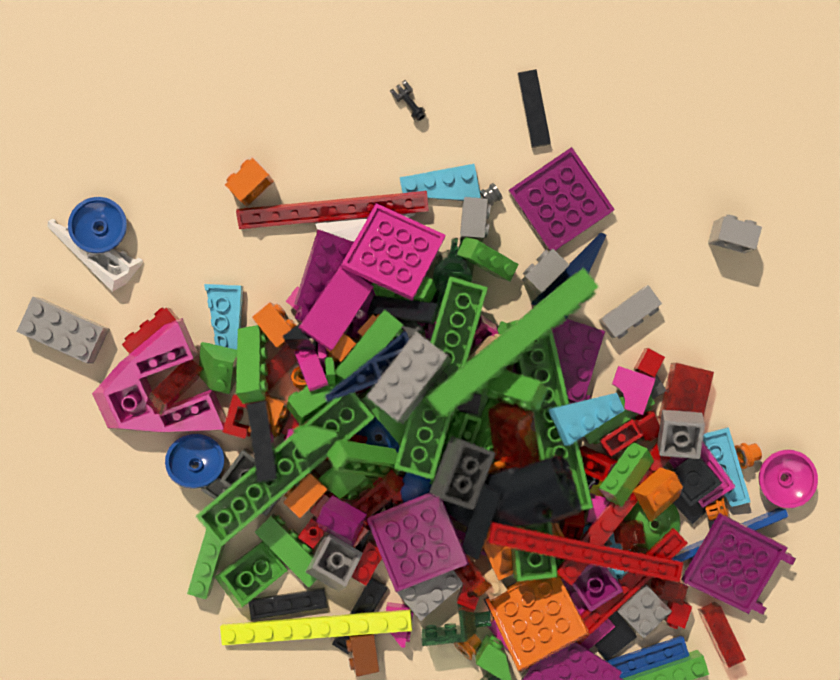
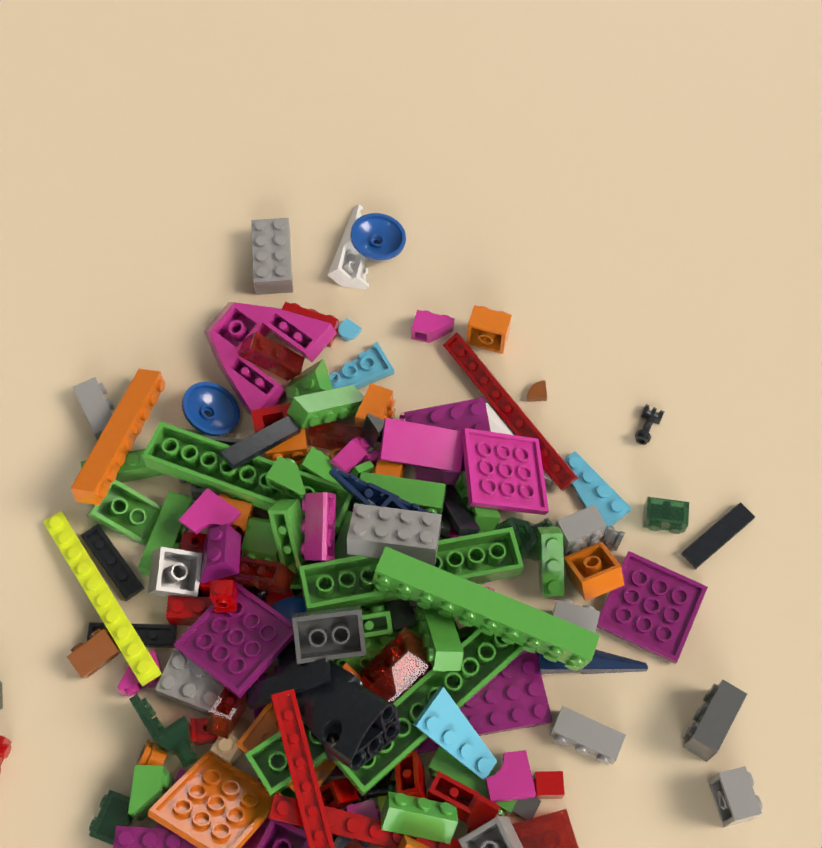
camera: 55 degrees right, 25 degrees down
(139, 555) = (94, 404): none -> light grey brick
(177, 302) = (348, 330): none -> medium azure tile
(182, 552) = (118, 437): none -> orange brick
(215, 229) = (431, 326): none -> dark pink slope
(299, 512) = (208, 512): none -> dark pink tile
(328, 174) = (537, 392): none -> dark orange tile
(369, 434) = (319, 526): none -> dark pink slope
(379, 535) = (224, 596): none -> red brick
(495, 140) = (666, 515): none -> clear green brick
(512, 229) = (594, 571): none -> orange brick
(674, 212) = (713, 720): none -> dark grey brick

